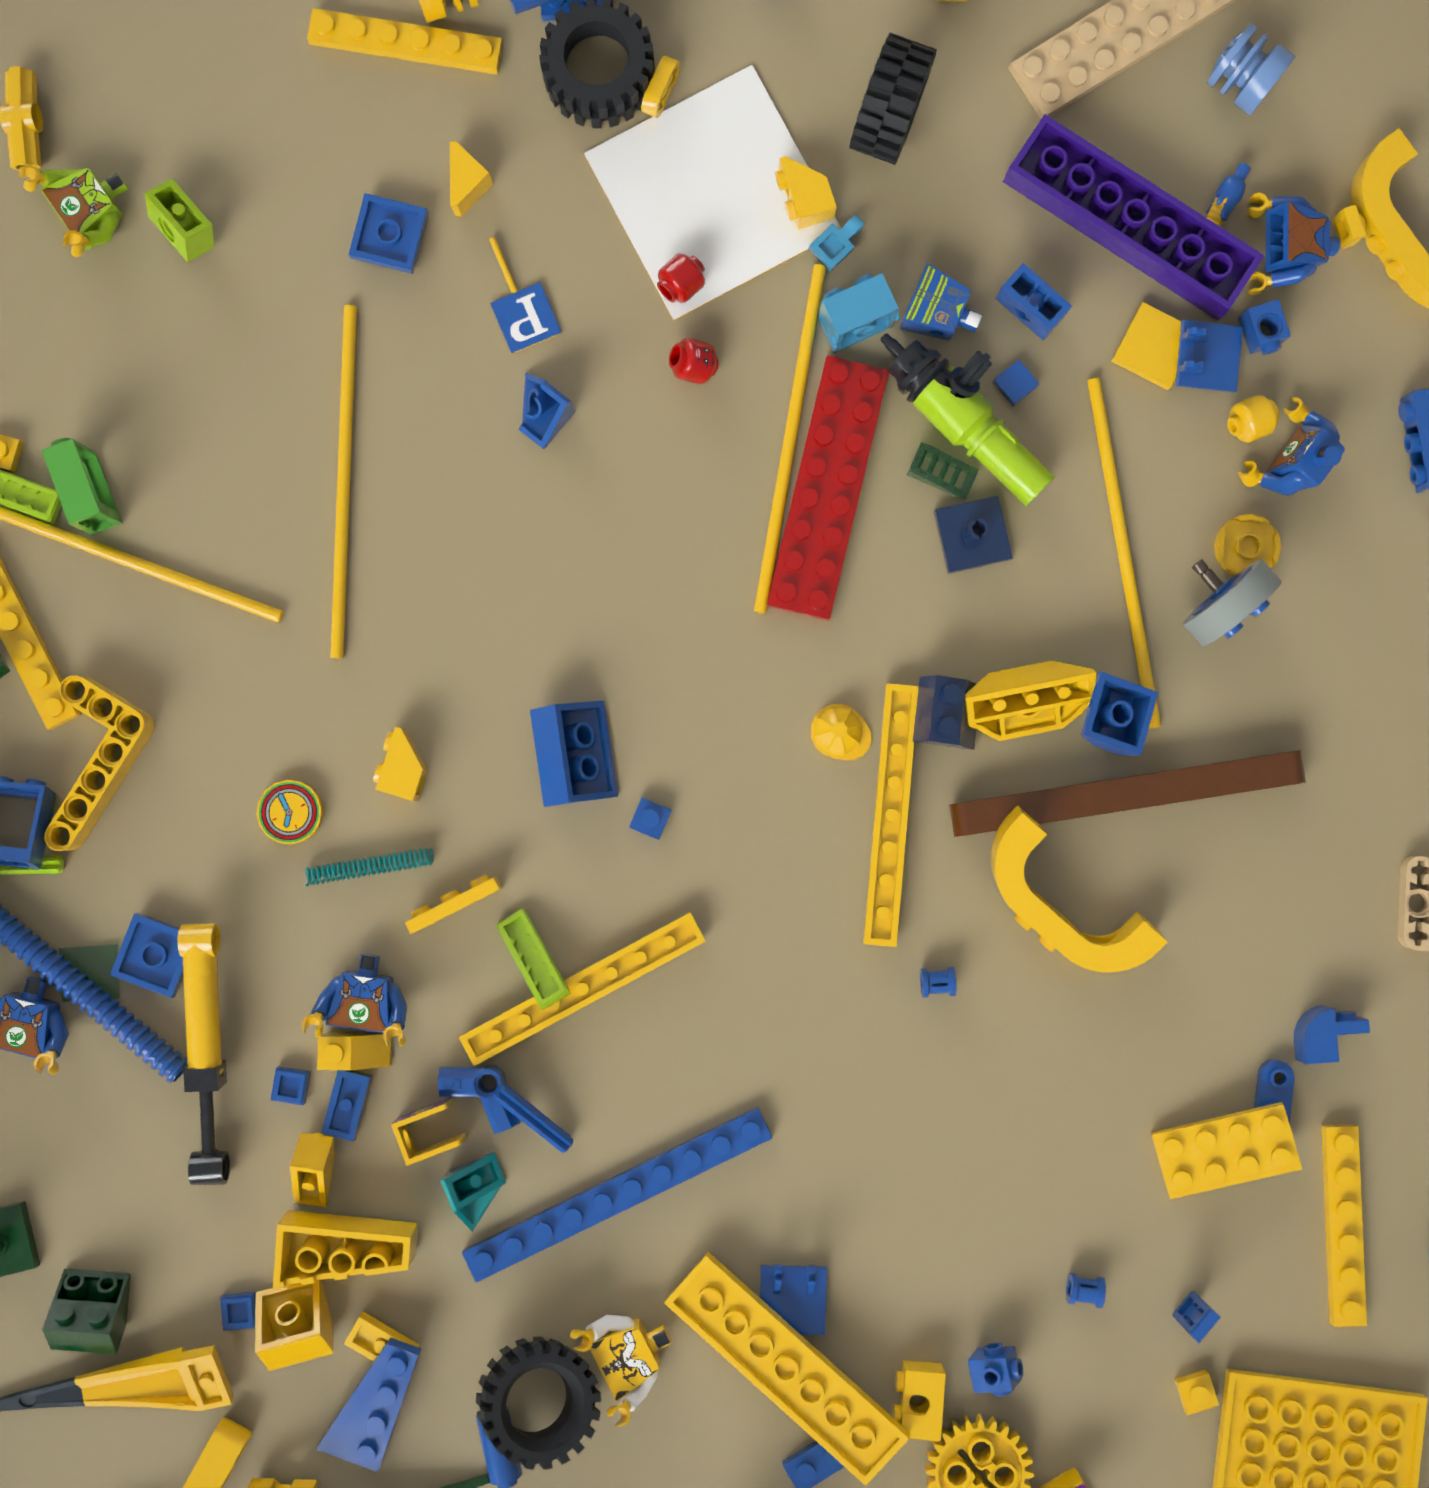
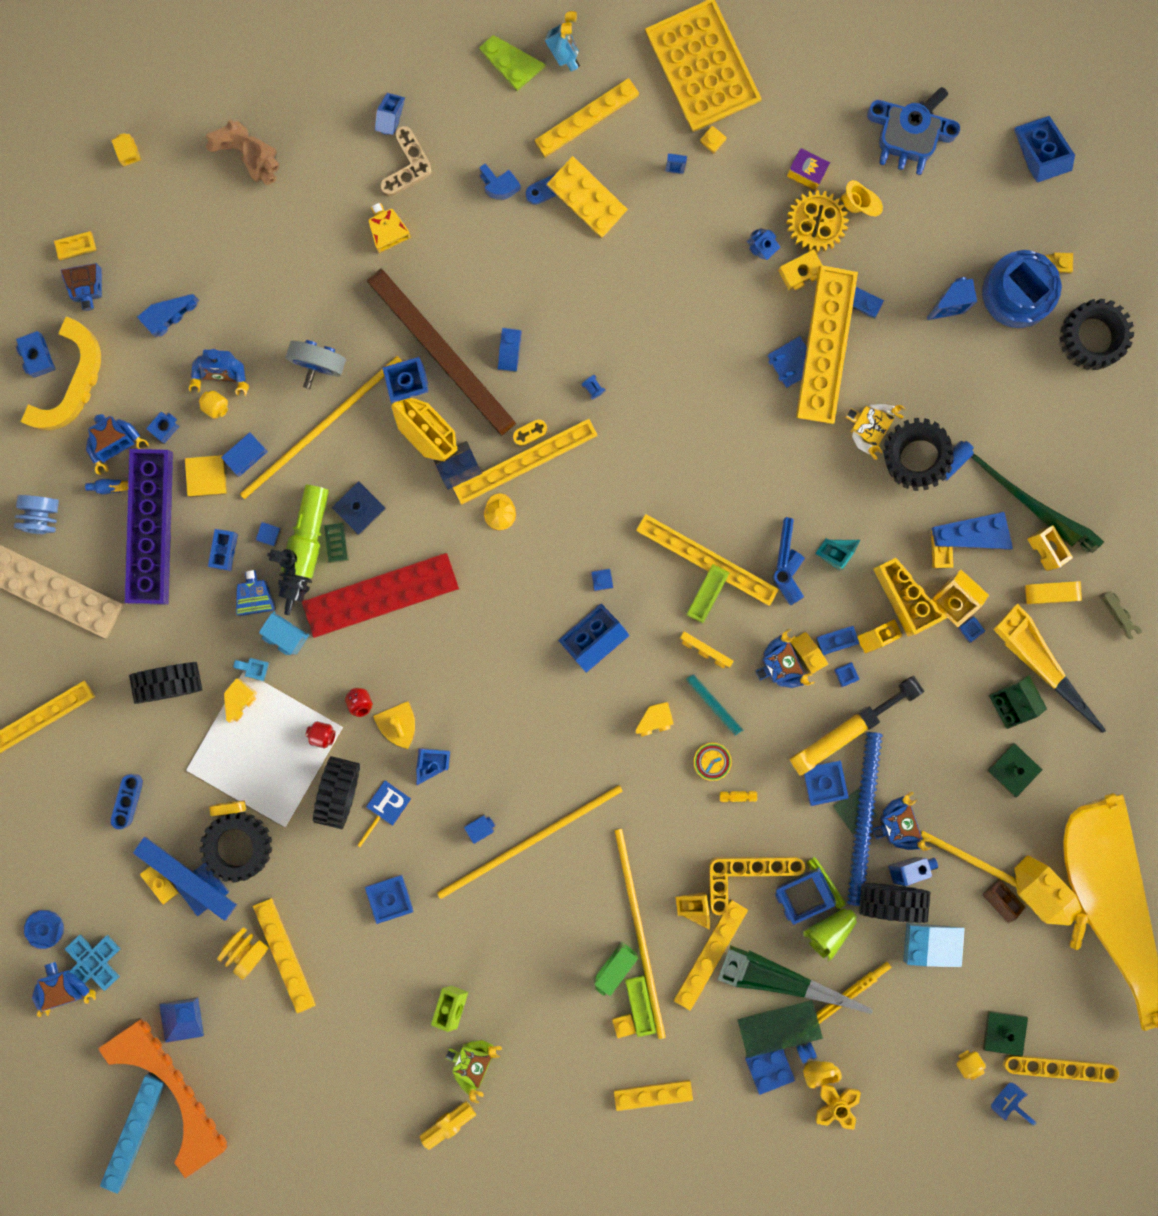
camera: 125 degrees left, 0 degrees up
(101, 655) = (694, 908): none -> yellow slope
(216, 817) = (738, 796): none -> yellow axle
(405, 420) = (480, 828): none -> blue brick
(406, 1142) = (832, 583): yellow piece -> none
(467, 180) = (336, 876): yellow slope -> none
(582, 243) = (336, 792): none -> black tyre
(616, 1194) = (797, 479): blue plate -> none
(628, 398) = (397, 724): none -> yellow shield
(790, 437) = (366, 630): yellow piece -> none
(920, 847) = (528, 428): none -> yellow beam
(1069, 895) = (509, 349): none -> blue slope
(1086, 1290) = (698, 223): blue bush -> none
(1113, 952) = (525, 311): yellow arch -> none
(1152, 418) = (244, 454): none -> blue panel
(1208, 356) = (195, 445): blue plate -> none
(1246, 541) = (278, 370): yellow tile -> none
(1349, 226) = (84, 415): yellow plate -> none
(1358, 827) = (387, 228): none -> yellow torso

